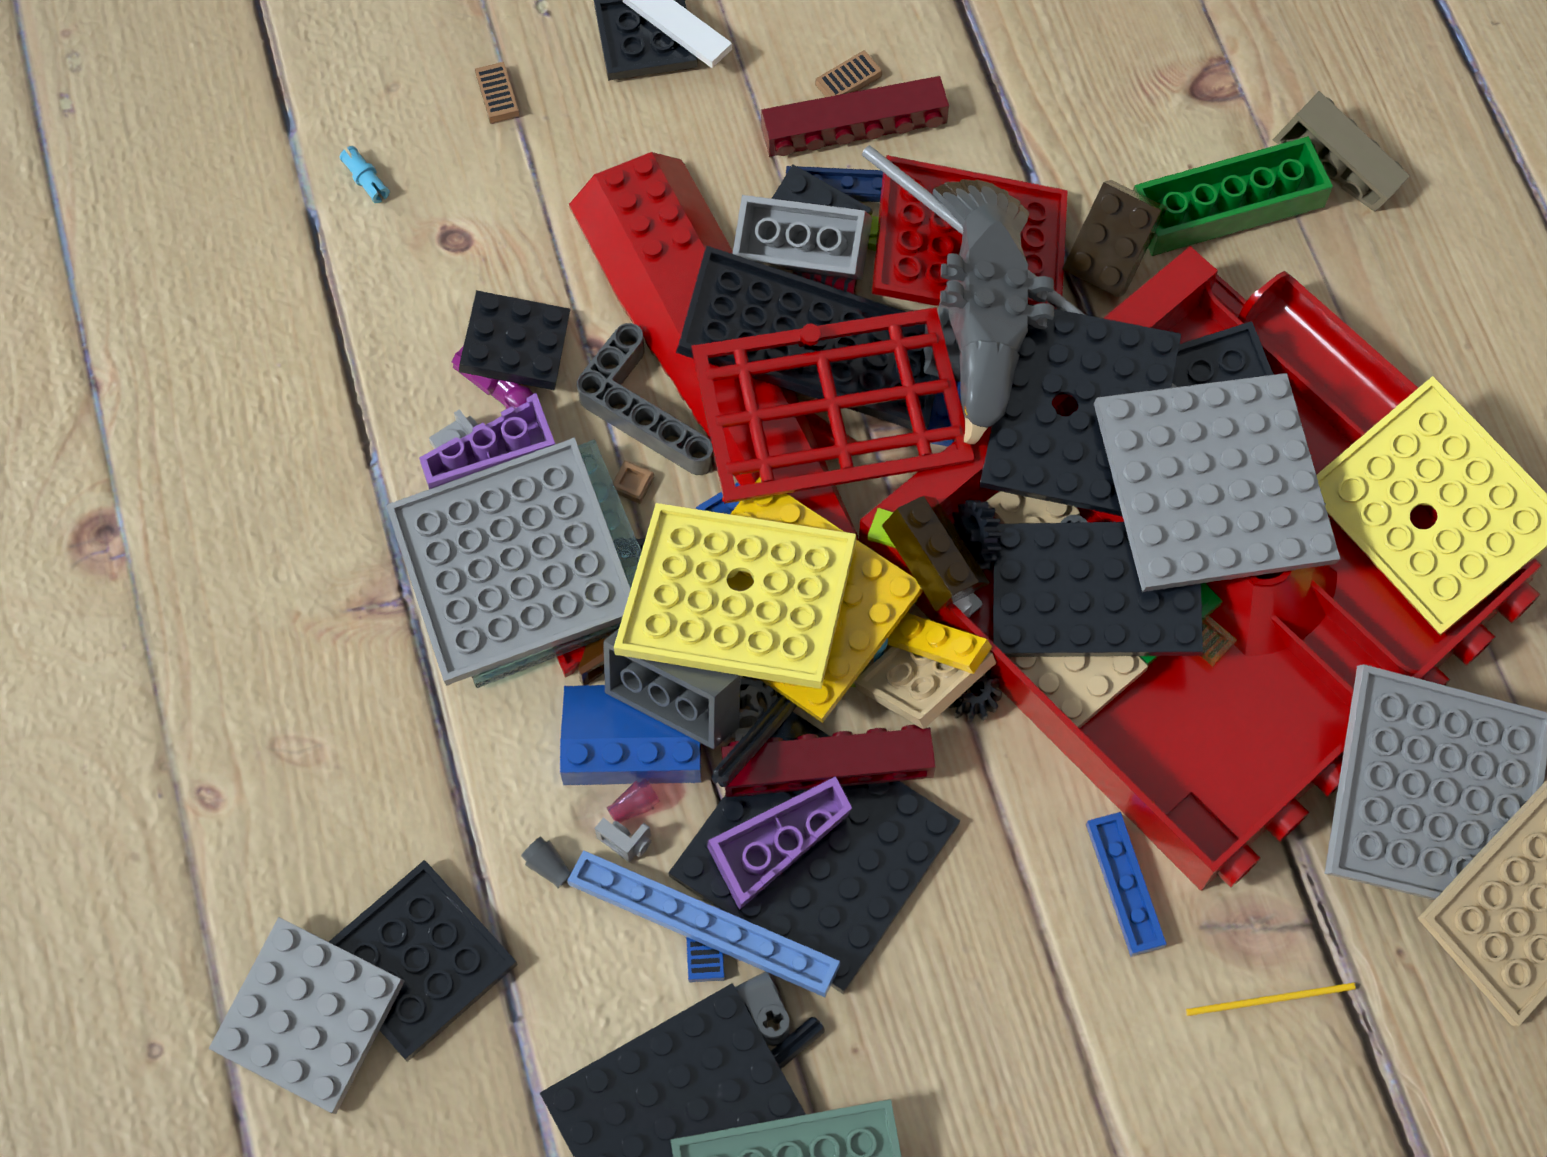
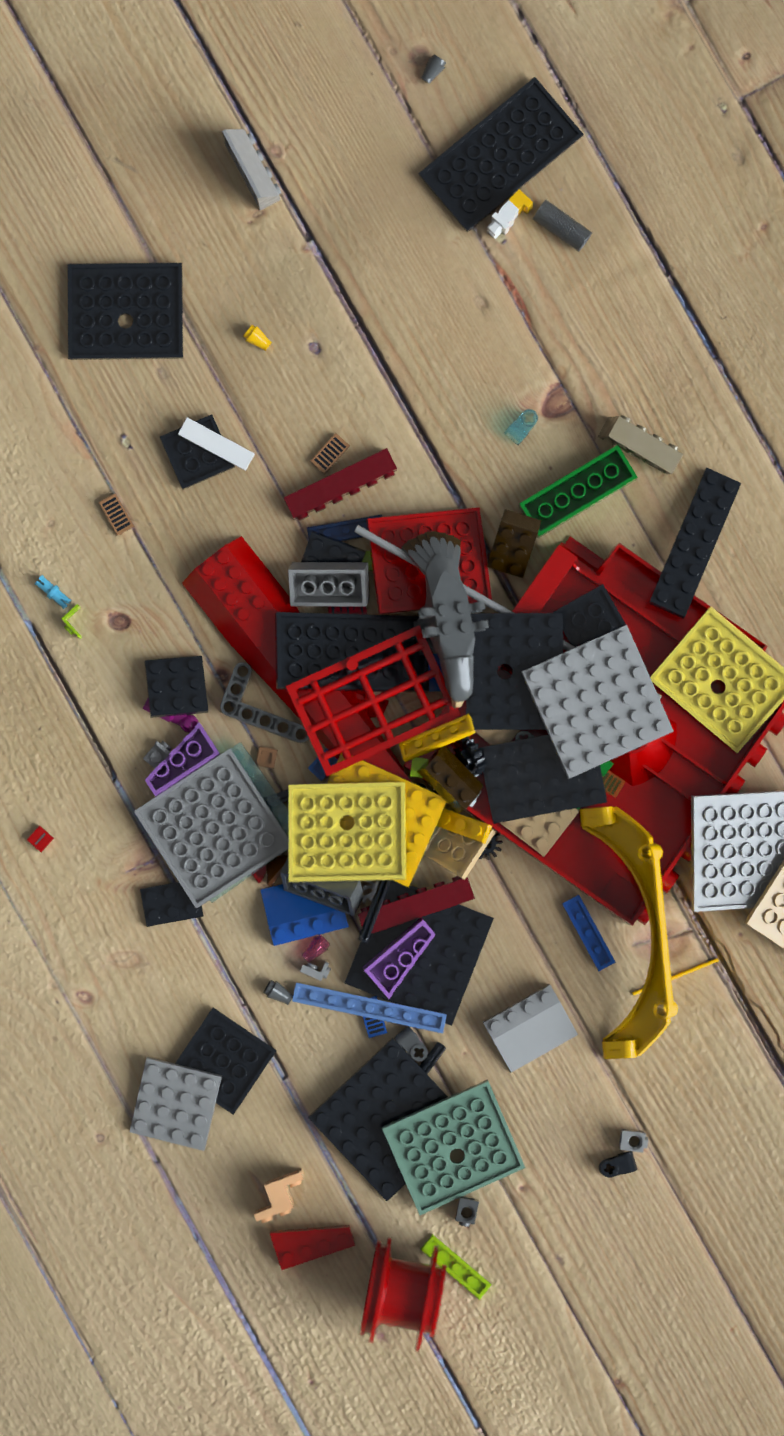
camera: 15 degrees left, 20 degrees up
(221, 525) = (40, 839): none -> red tile
(373, 214) = (68, 626): none -> lime bracket
(400, 676) = (167, 904): none -> black plate
(927, 481) = (437, 737): none -> yellow tile
(987, 1028) = (530, 1028): none -> light grey slope
(1157, 94) = (520, 429): none -> clear light blue piece
(1224, 1034) = (642, 857): none -> yellow panel
(1410, 303) = (694, 543): none -> black plate

